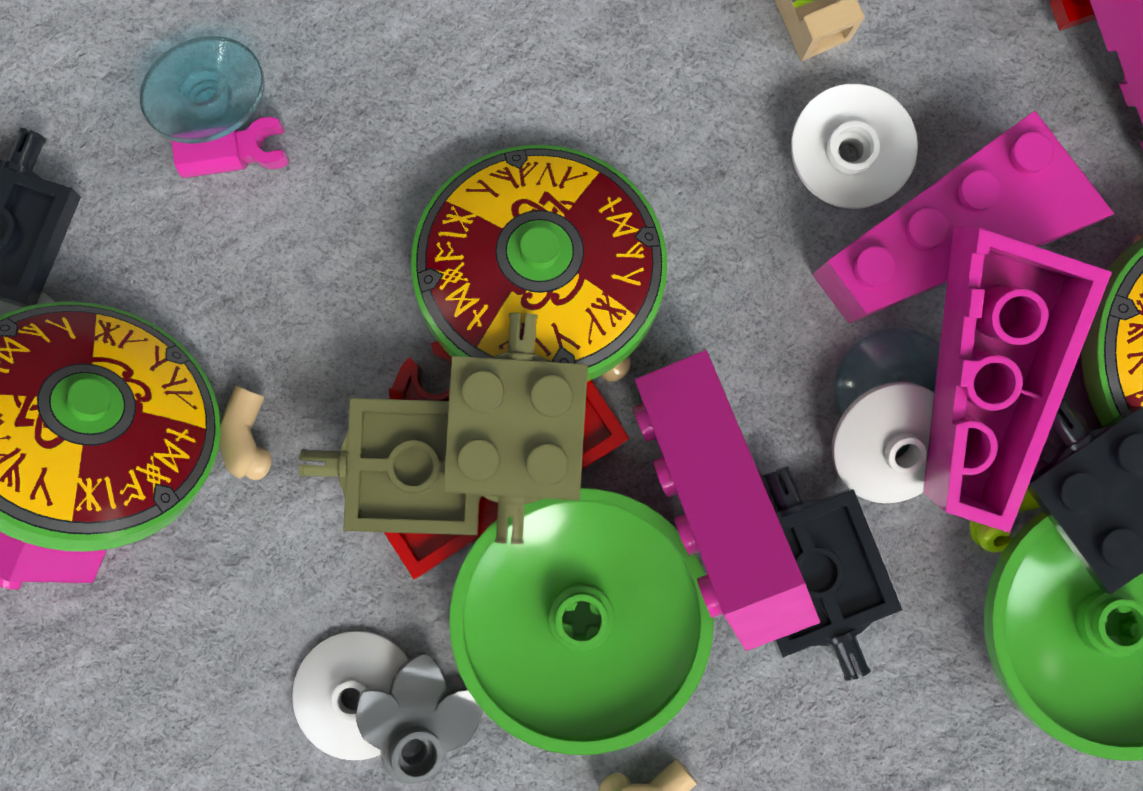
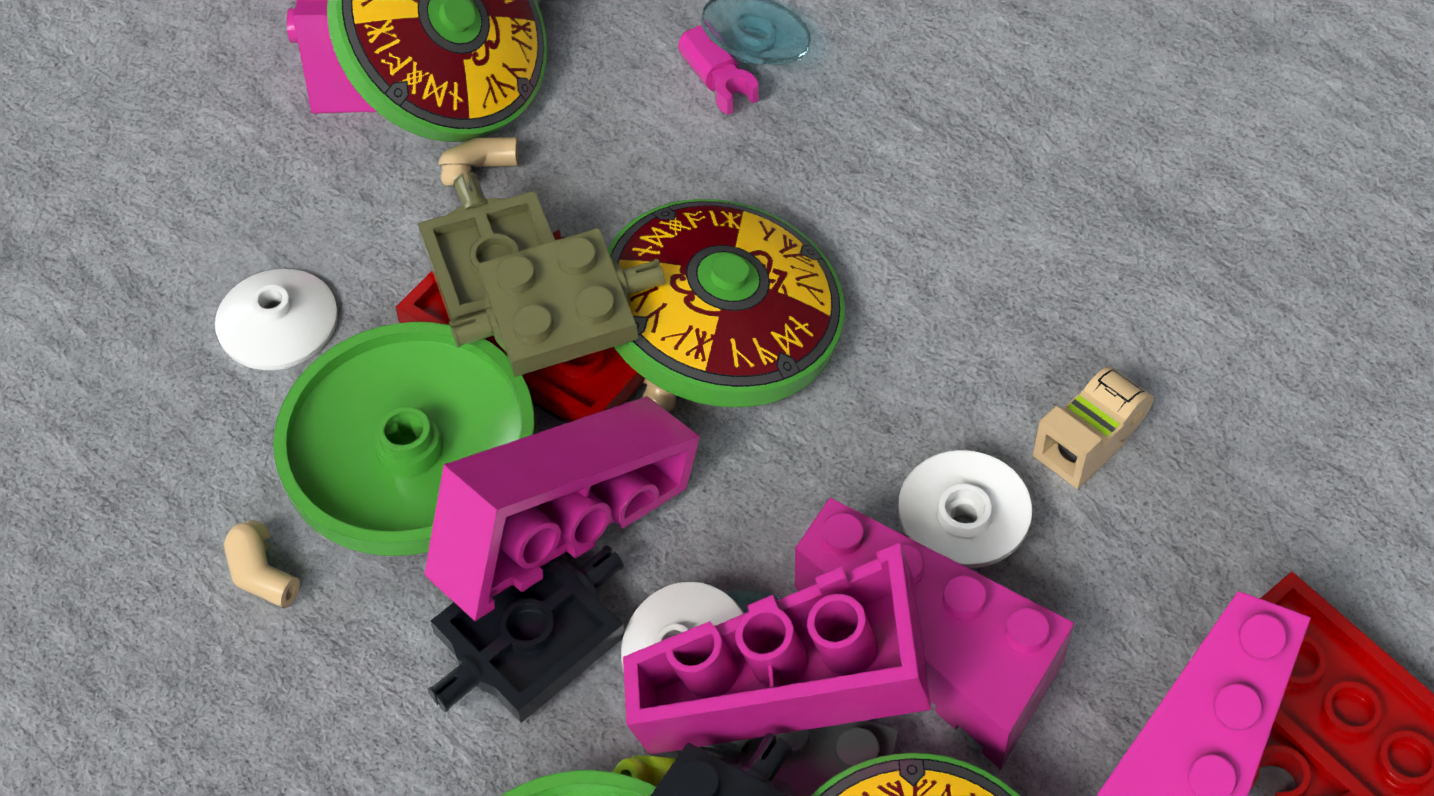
camera: 70 degrees right, 30 degrees down
(417, 710) = (275, 351): dark grey plate -> none

